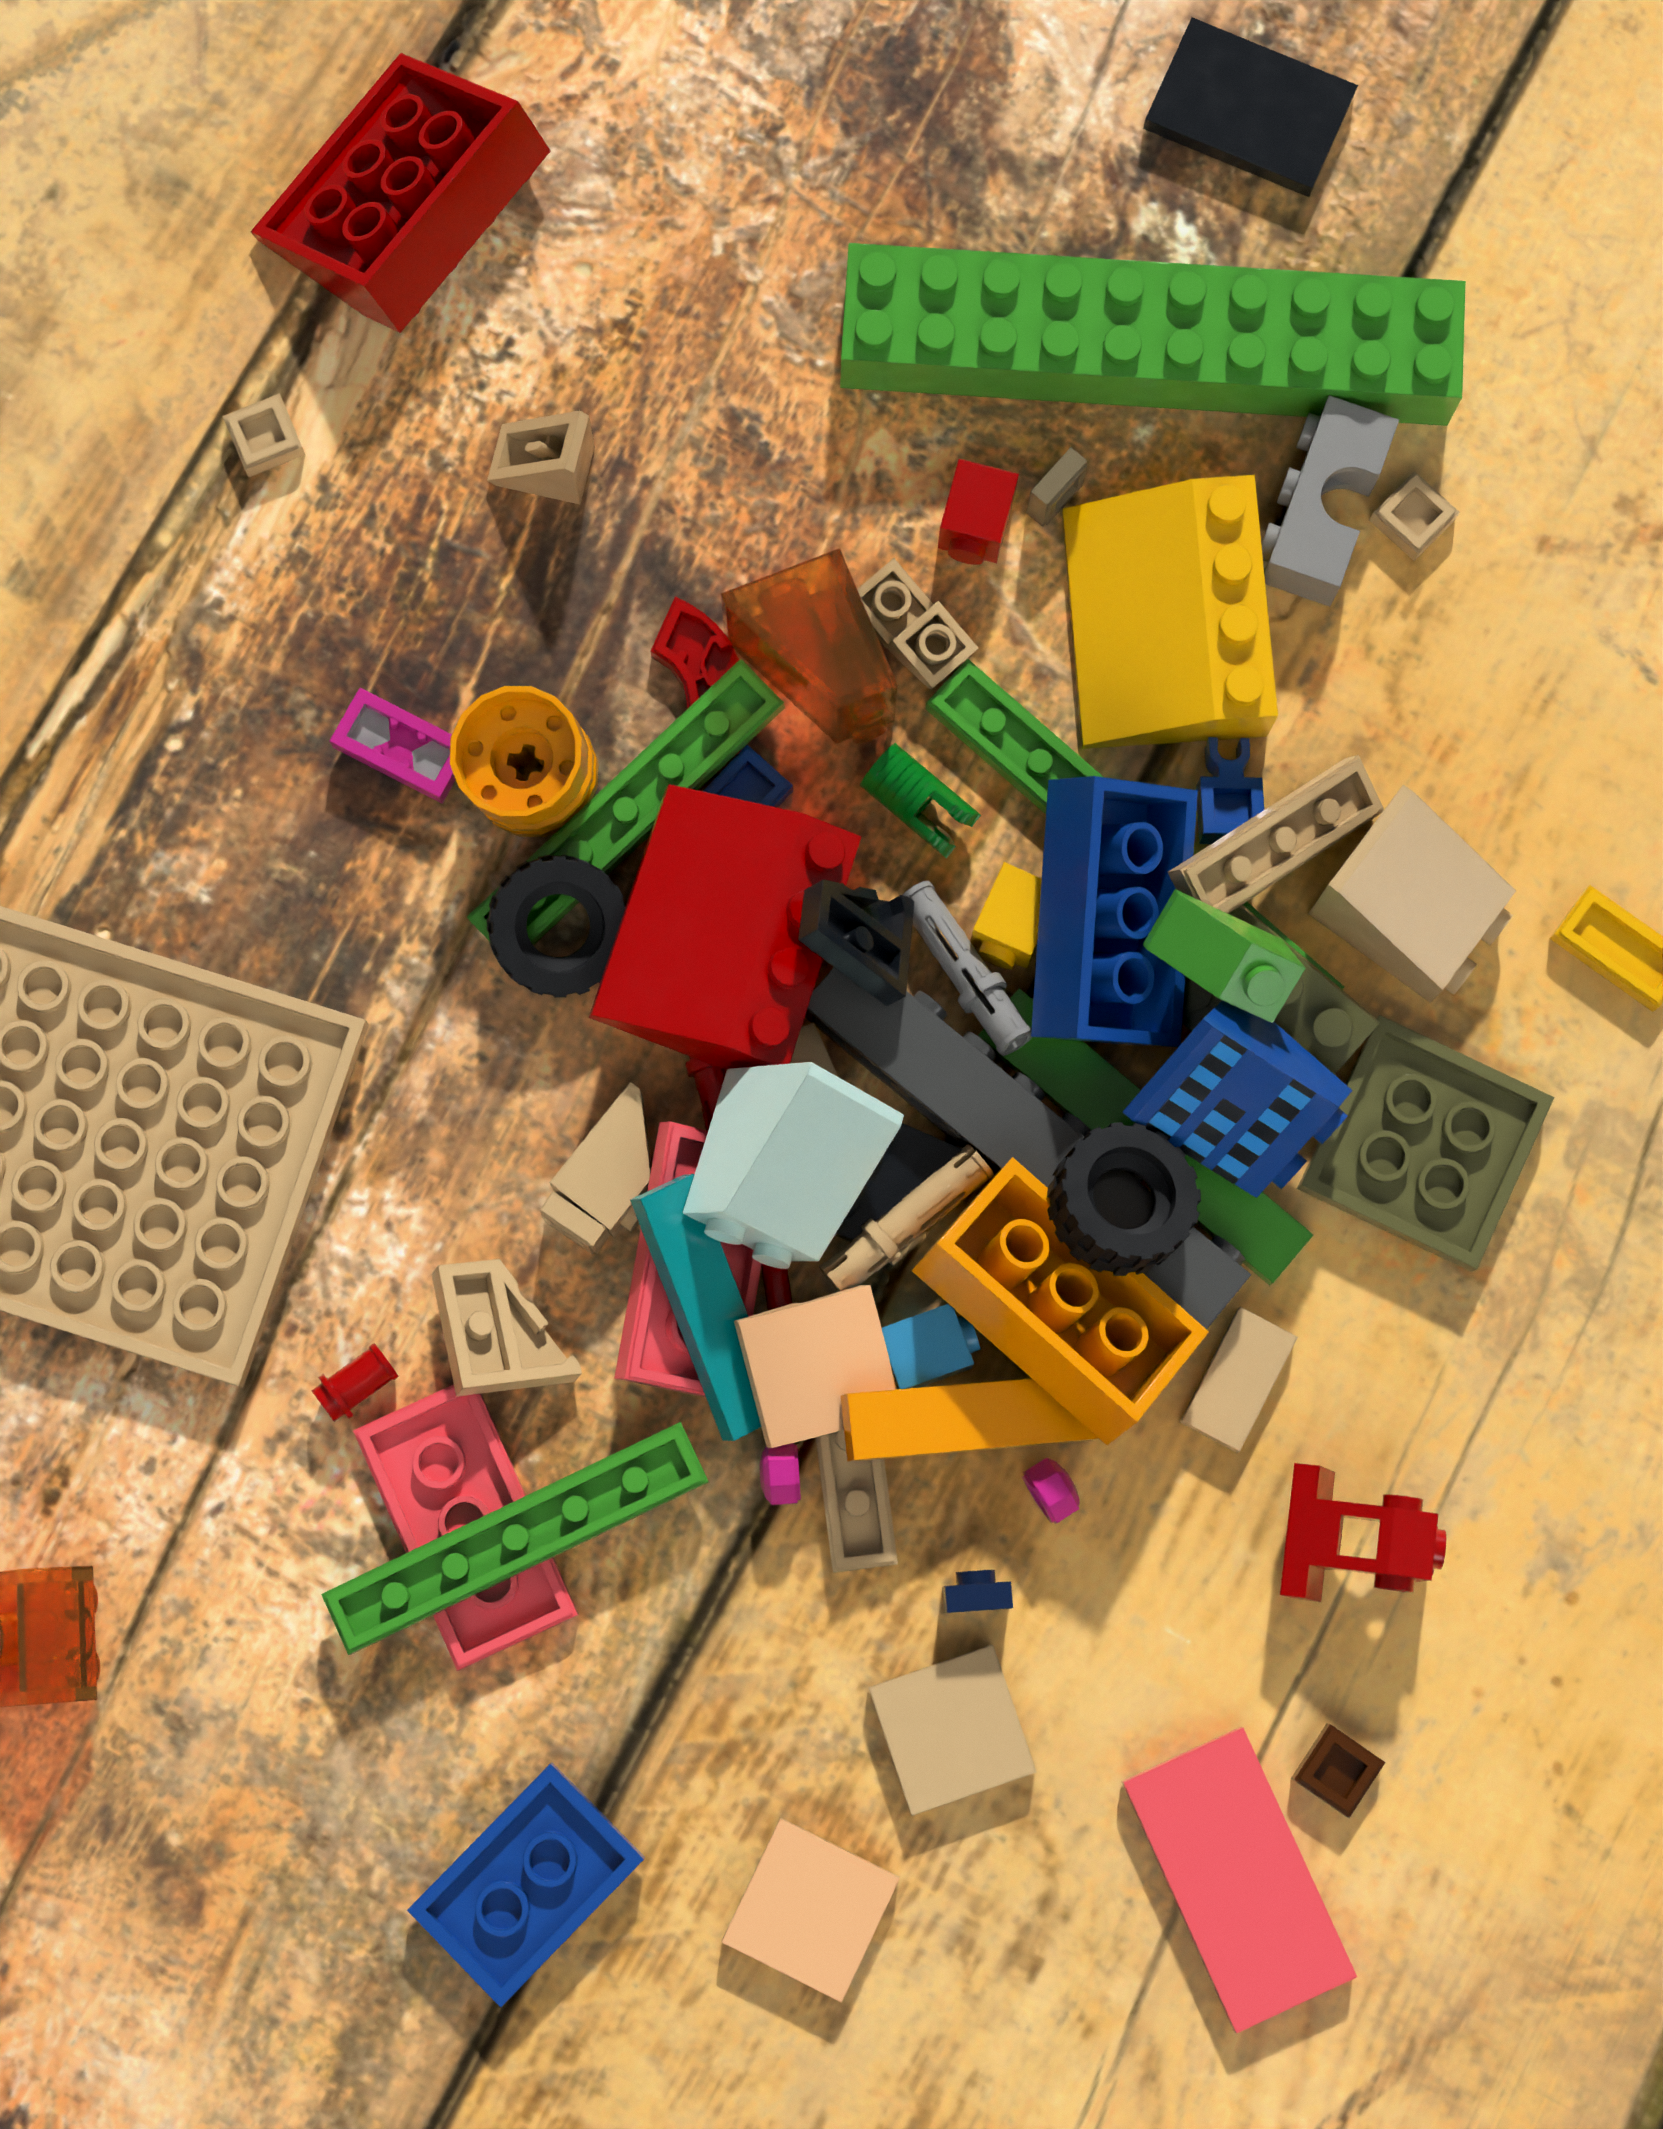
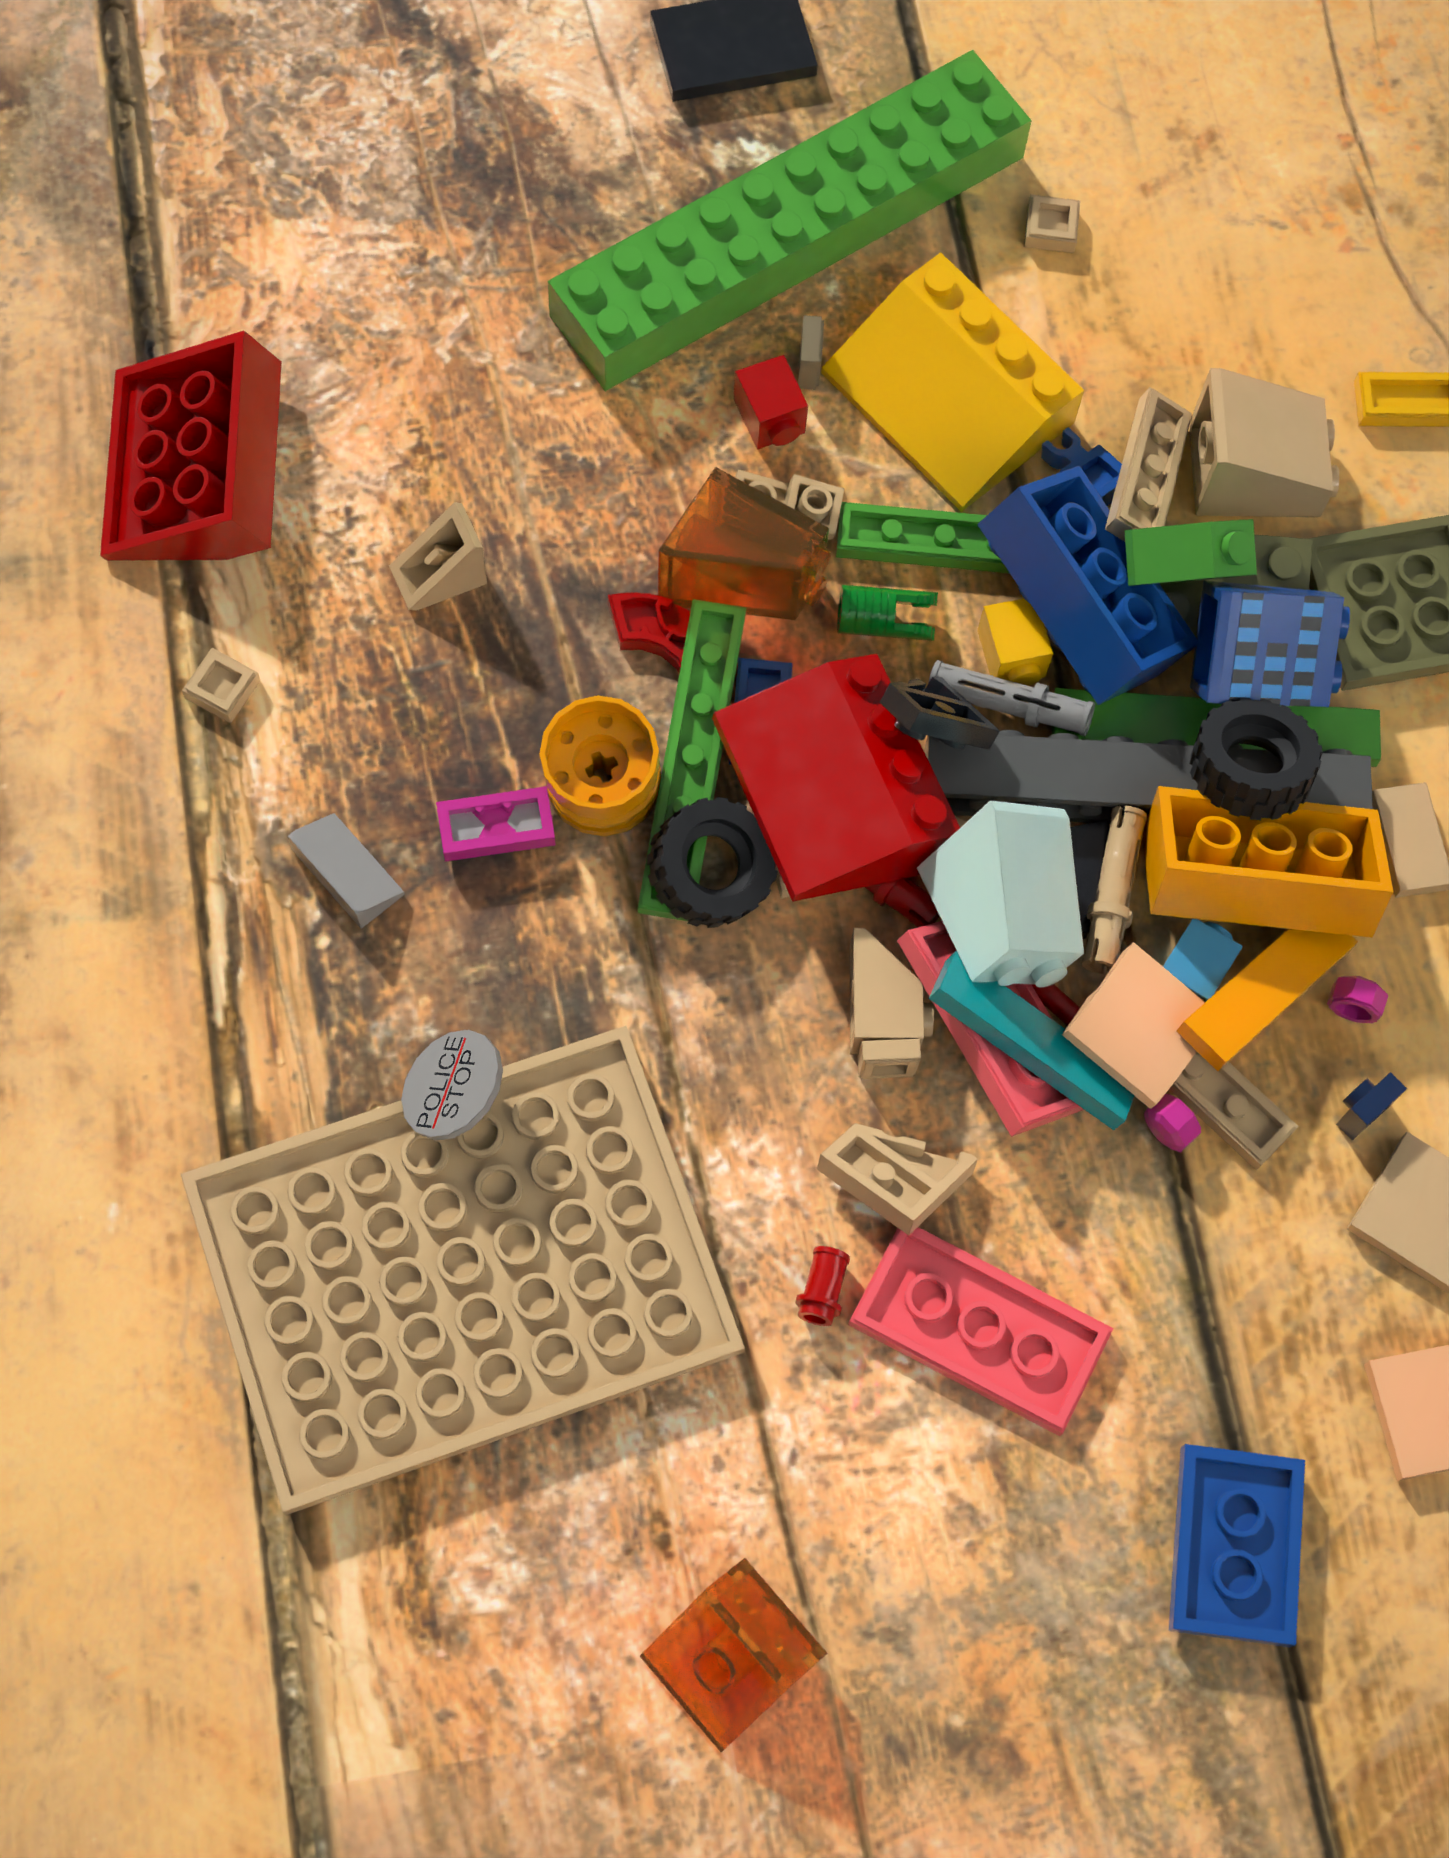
camera: 40 degrees left, 10 degrees down
(160, 964) = (452, 1085): none -> light grey piece
(239, 690) = (345, 868): none -> light grey slope
(514, 1538) = (1028, 1308): bright green tile -> none
(1343, 452) = (974, 210): light grey arch -> none

